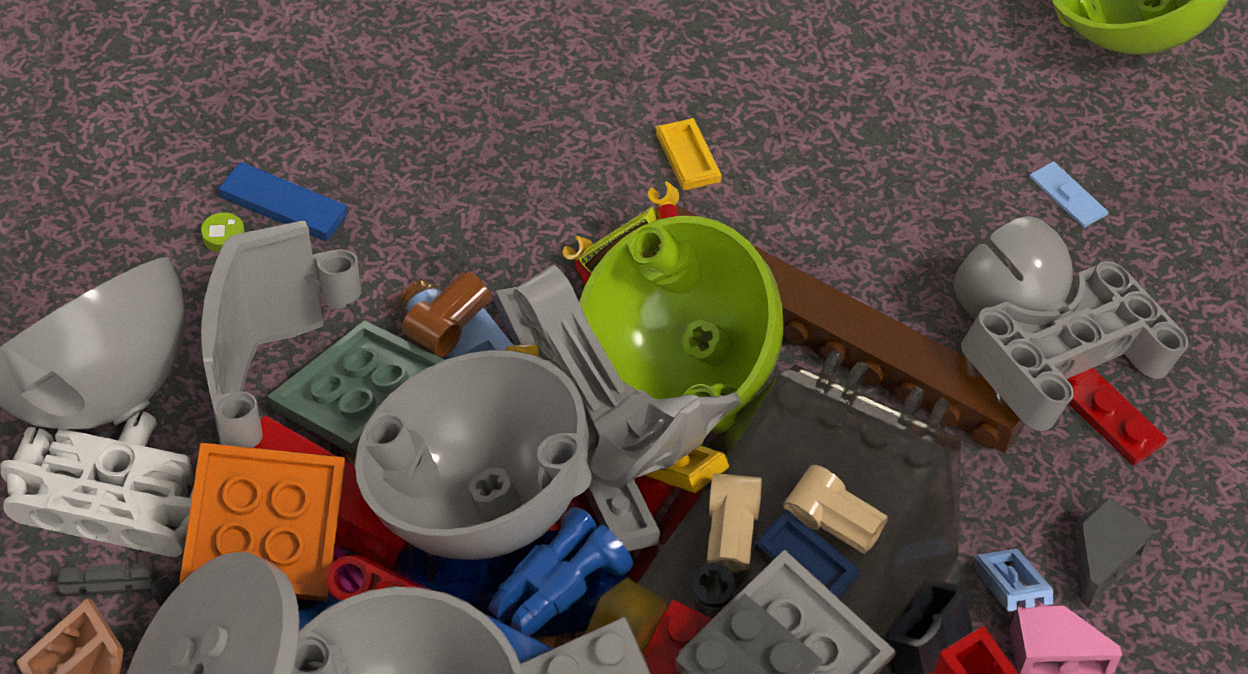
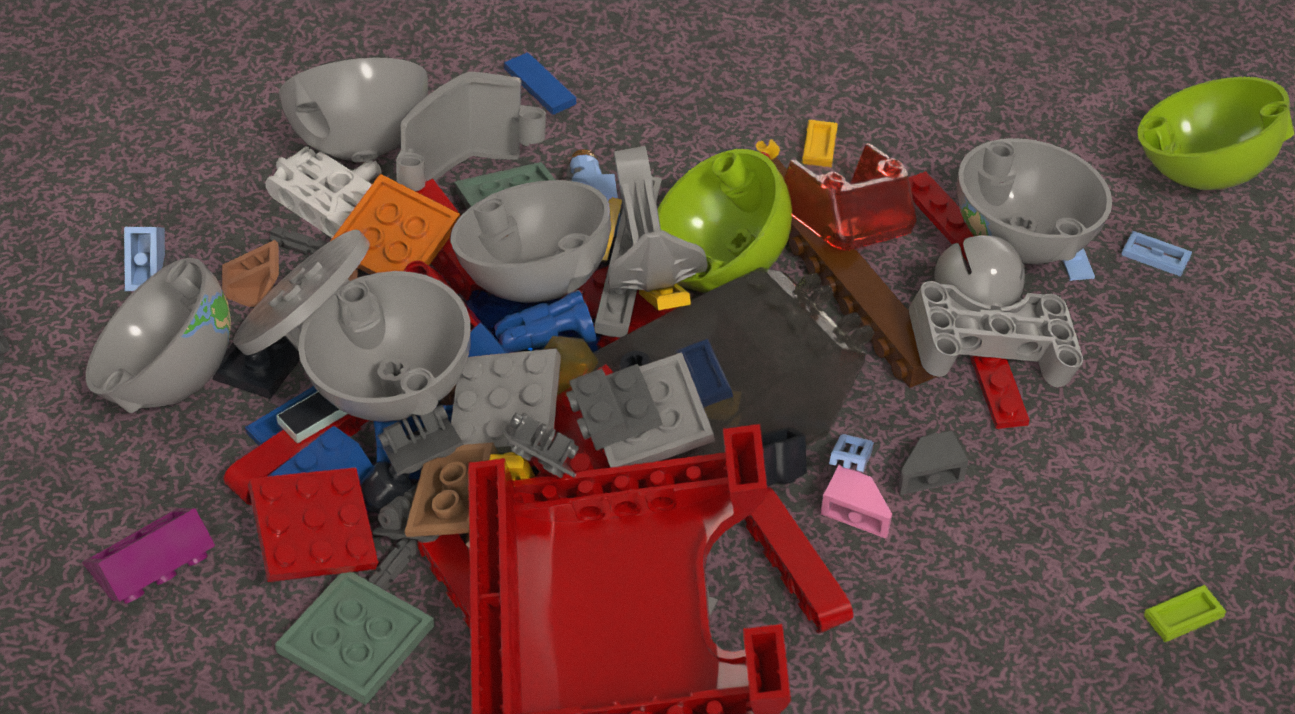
camera: 30 degrees right, 5 degrees down
(440, 323) = (586, 167): dark orange piece -> none
(733, 513) = (673, 325): tan piece -> none
(818, 231) = (858, 214): none -> clear red windscreen
(824, 503) = (734, 344): tan piece -> none
(898, 197) = (939, 209): none -> red plate
(1015, 145) = (1046, 205): none -> light grey piece
(1154, 158) = (1155, 256): none -> light blue tile

